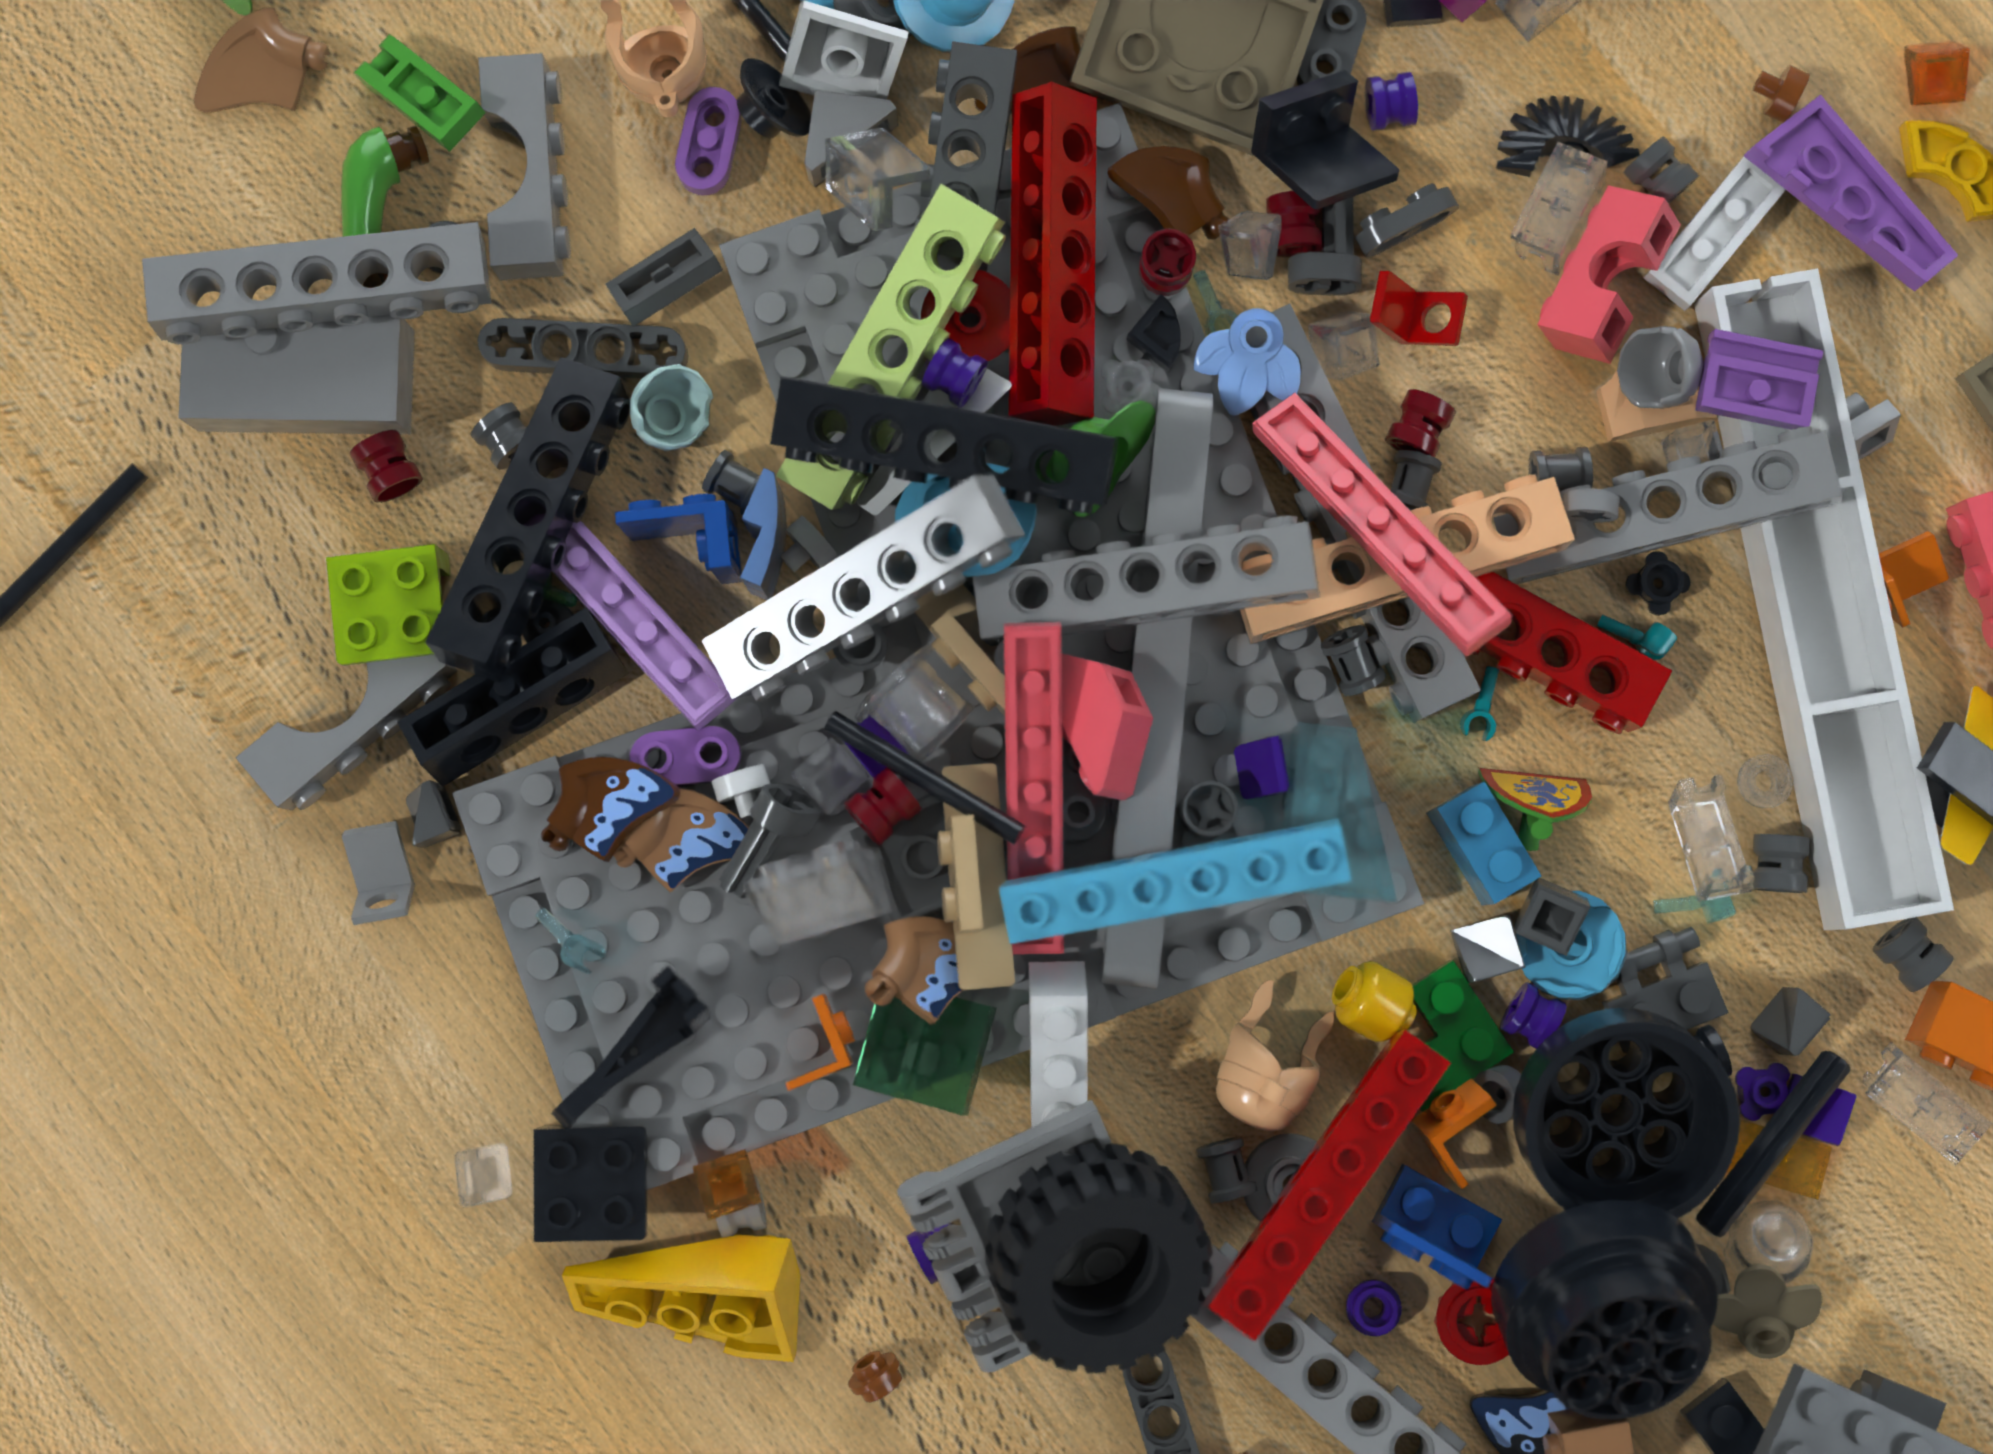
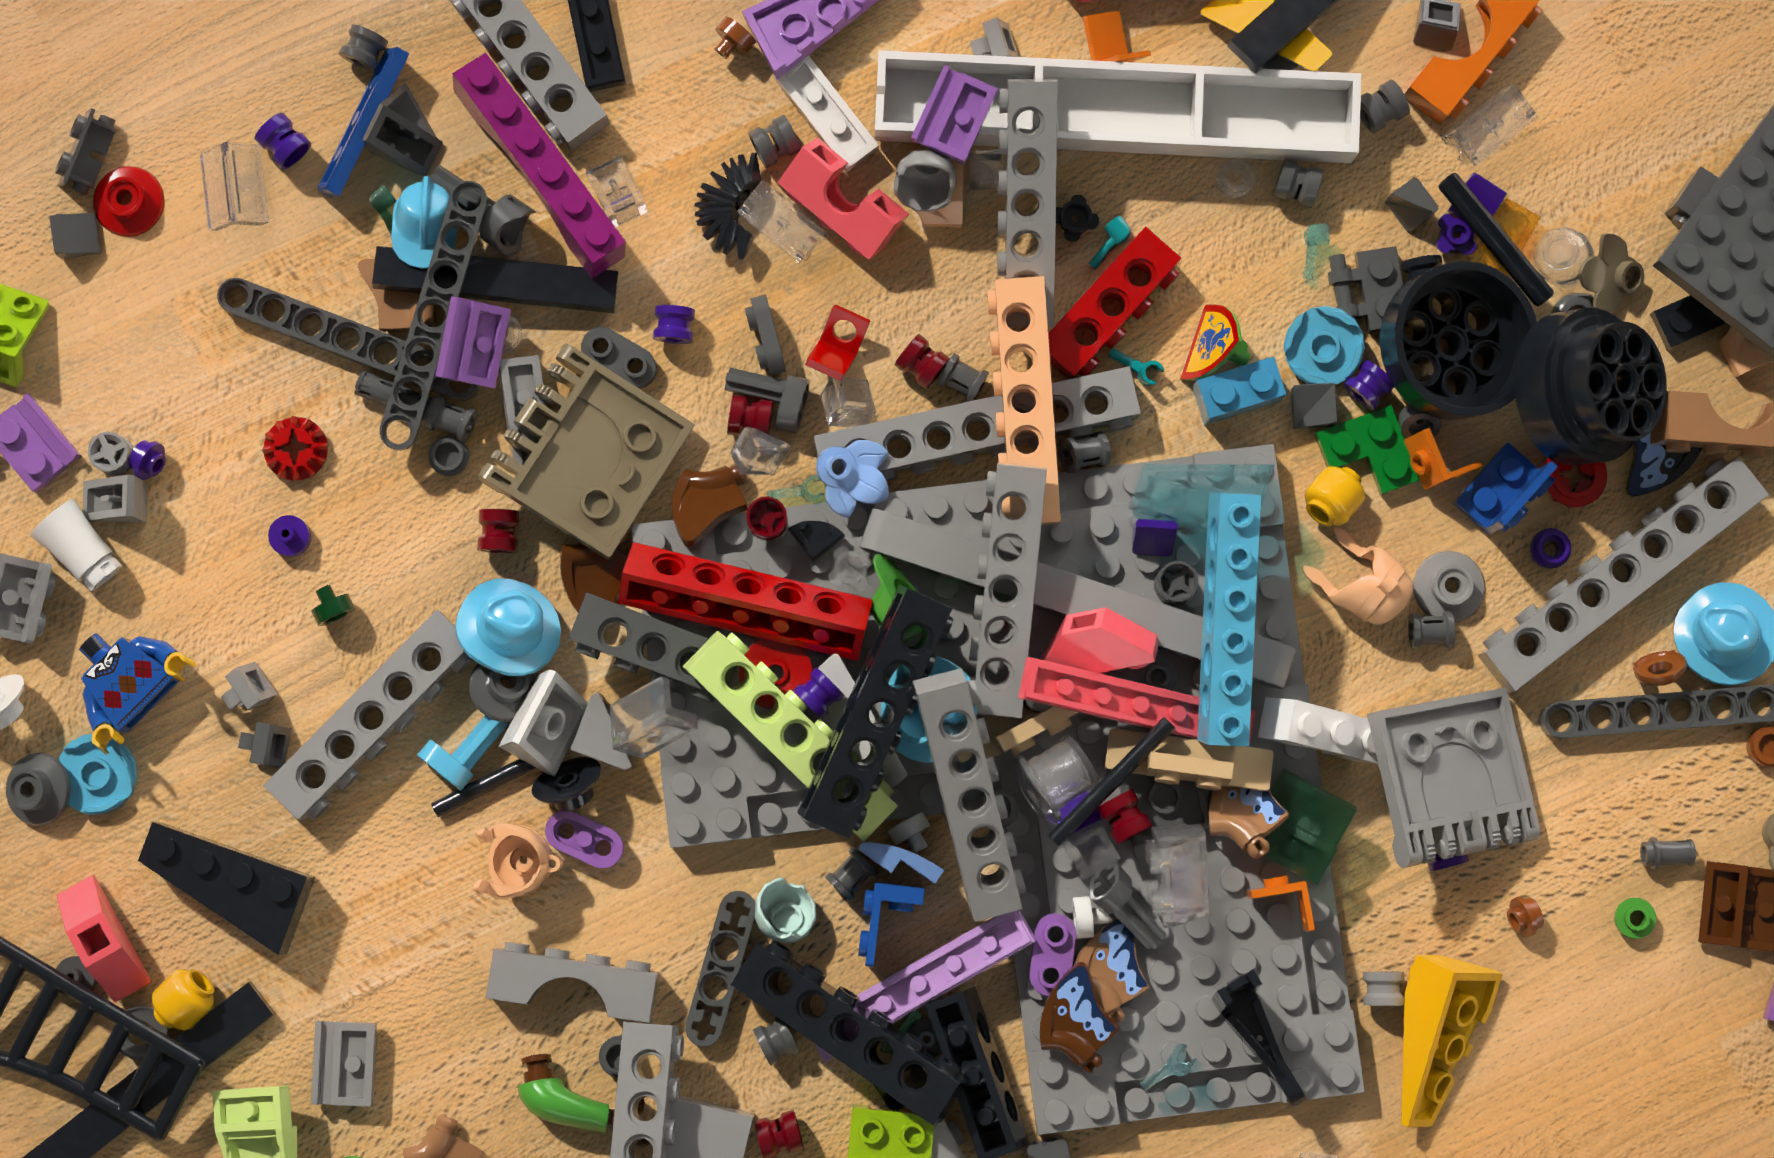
camera: 80 degrees left, 0 degrees up
(420, 93) = (500, 1048): bright green plate -> none
(590, 1183) = (1346, 1091): black bracket -> none
(664, 277) = (687, 892): dark grey tile -> none
(727, 1184) = (1369, 991): clear orange slope -> none
(1129, 1311) = (1520, 725): black tyre -> none
(1312, 148) = (702, 387): black bracket -> none
(1326, 1184) = (1460, 562): red brick -> none
(1382, 525) = (1000, 411): coral tile -> none
(1551, 916) = (1302, 355): dark grey slope -> none
(1567, 468) = (979, 268): dark grey bush -> none
(1591, 505) = (1019, 257): light grey tile -> none
(1709, 840) = (1271, 228): clear hinge -> none

